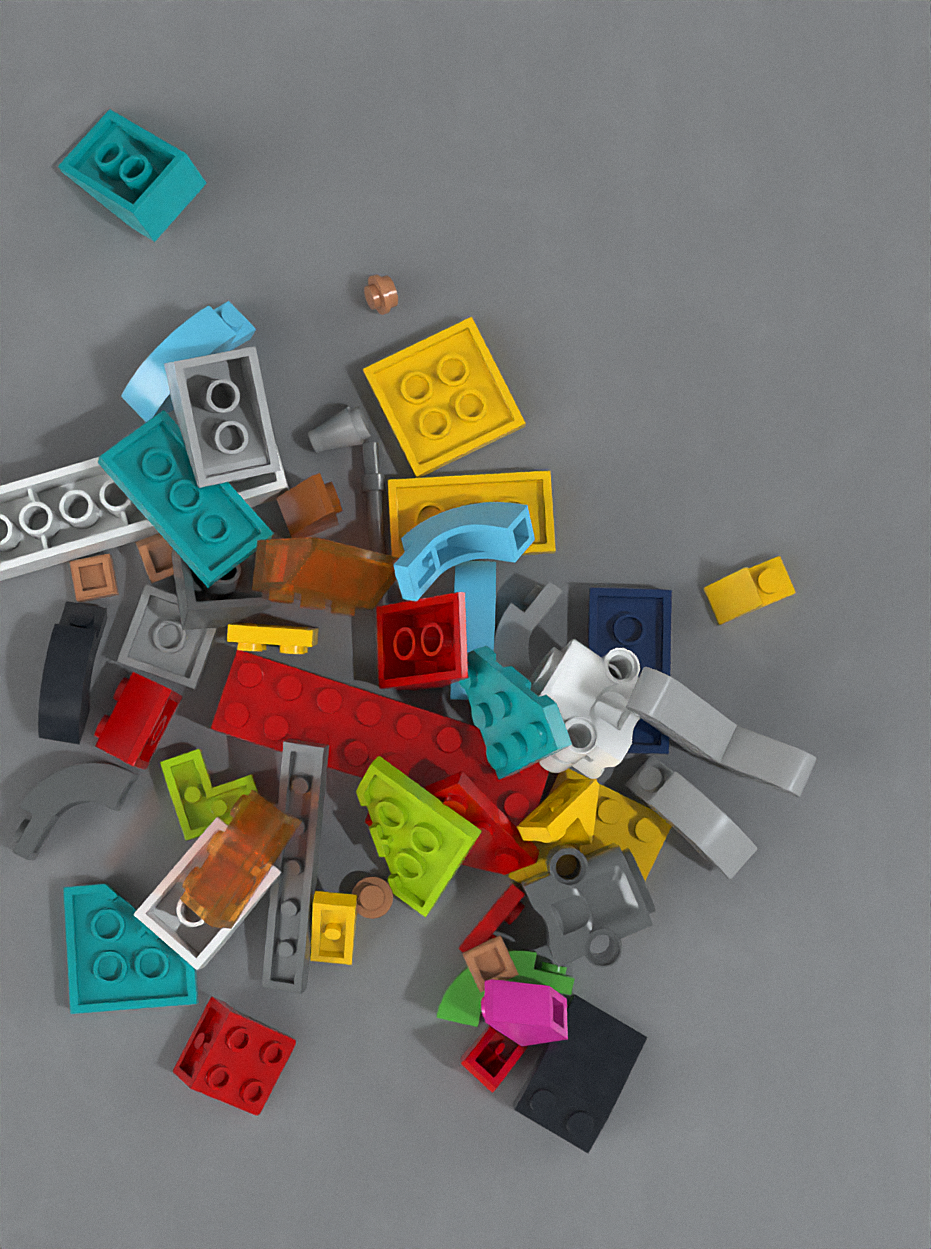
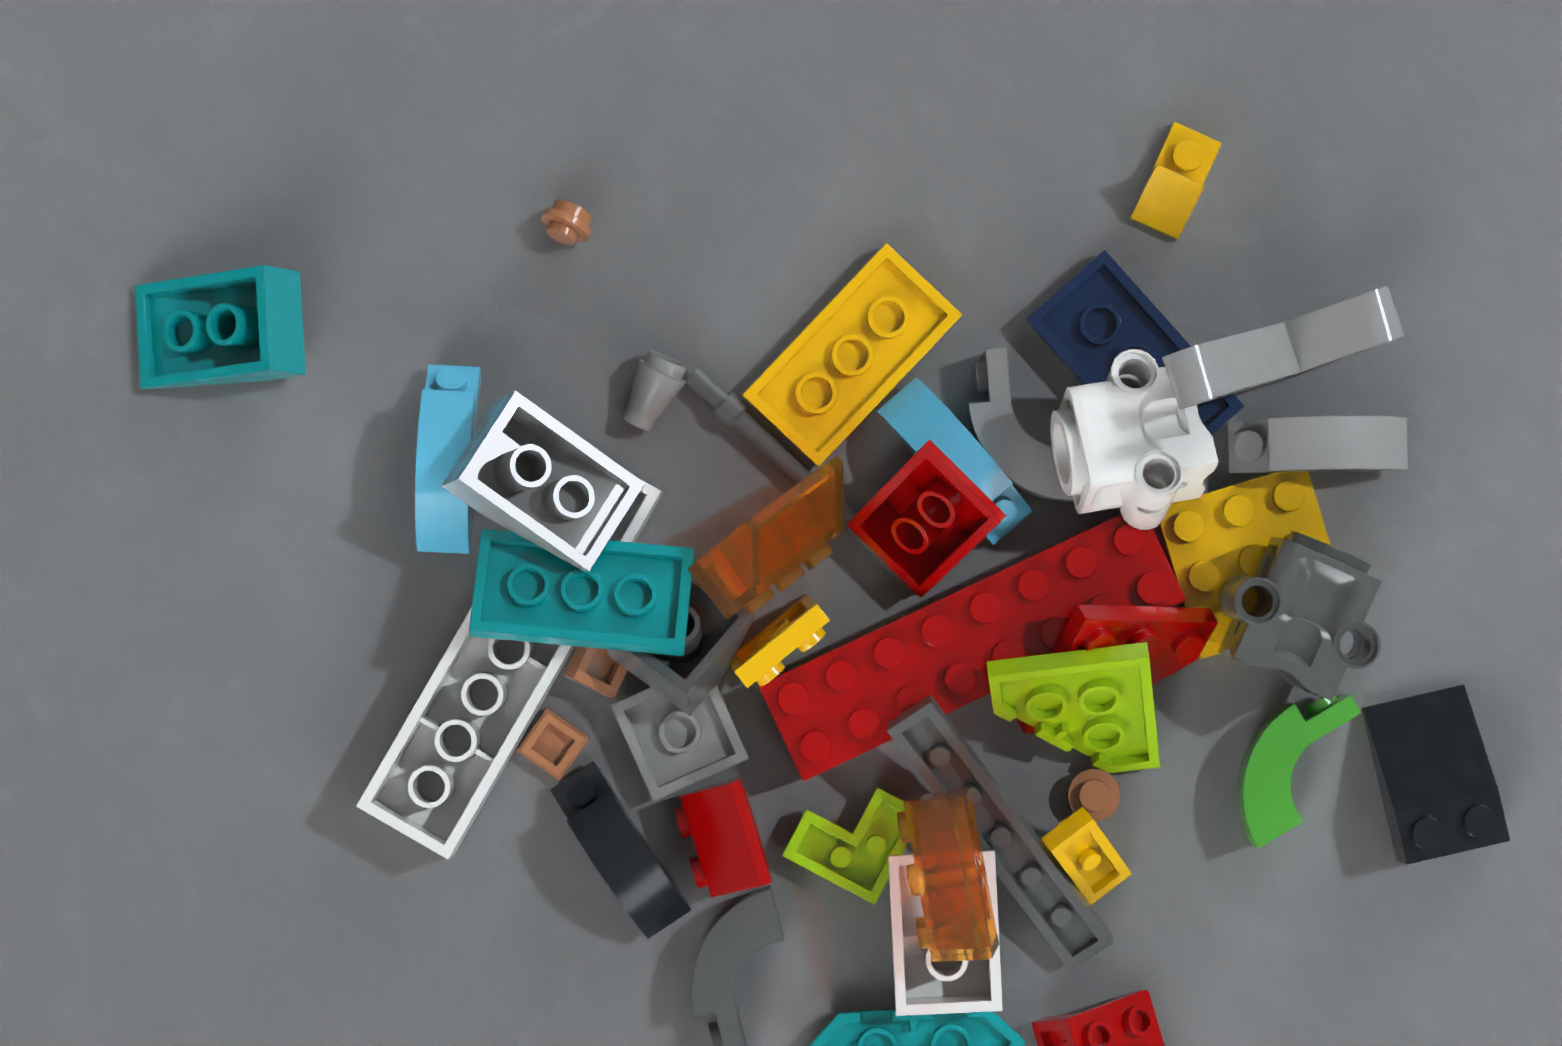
camera: 35 degrees left, 5 degrees up
(310, 507) = (696, 490): dark orange slope -> none
(444, 397) = (720, 266): yellow plate -> none
(461, 535) = (863, 387): medium azure arch -> none
(490, 962) = (1262, 753): nougat tile -> none
(491, 1057) = (1339, 827): red slope -> none
(504, 909) = (1228, 735): red plate -> none
(512, 719) = (1080, 516): teal plate -> none
(525, 1011) = (1335, 767): dark pink slope -> none
(564, 814) = (1203, 553): yellow slope -> none

